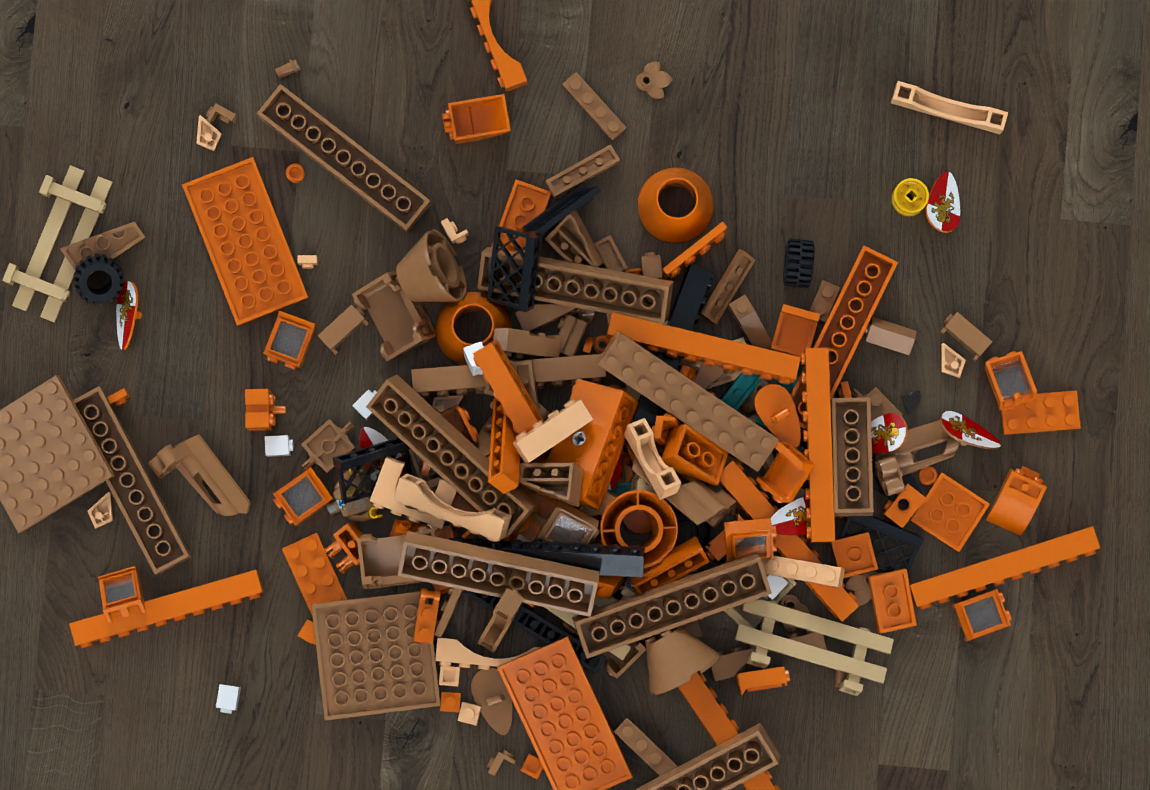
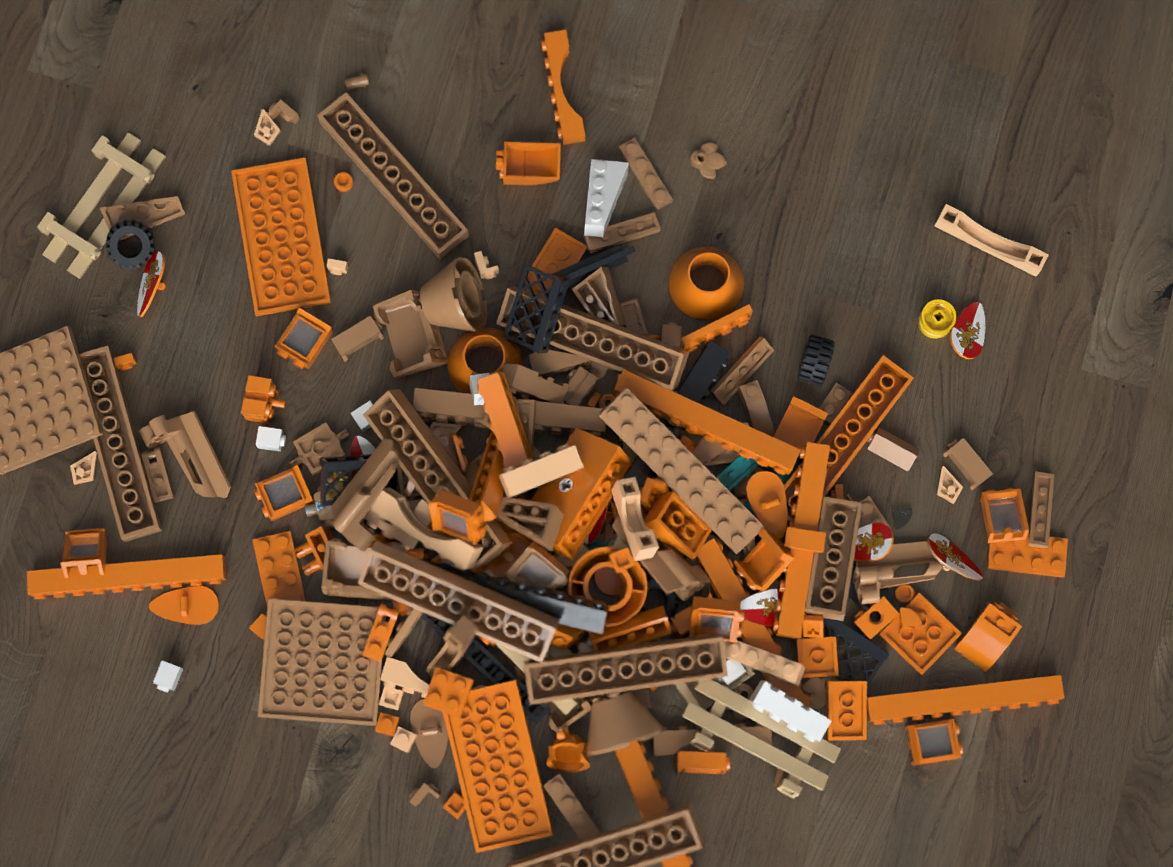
camera: 10 degrees right, 5 degrees down
(175, 503) = (157, 475): none -> medium nougat plate
(231, 625) = (187, 605): none -> orange shield
(376, 494) = (357, 499): none -> medium nougat panel
(481, 492) = (457, 516): none -> orange window
(504, 661) = (448, 692): none -> orange plate
(556, 136) = (604, 189): none -> white wedge
(631, 695) = (568, 752): none -> orange helmet
(647, 501) = (621, 560): none -> orange plate
(821, 445) = (805, 540): none -> orange tile
(837, 613) = (790, 711): none -> white wedge
(845, 526) = (813, 626): none -> orange bracket
(936, 499) = (909, 618): none -> orange tile
(1045, 367) = (1041, 510): none -> medium nougat plate

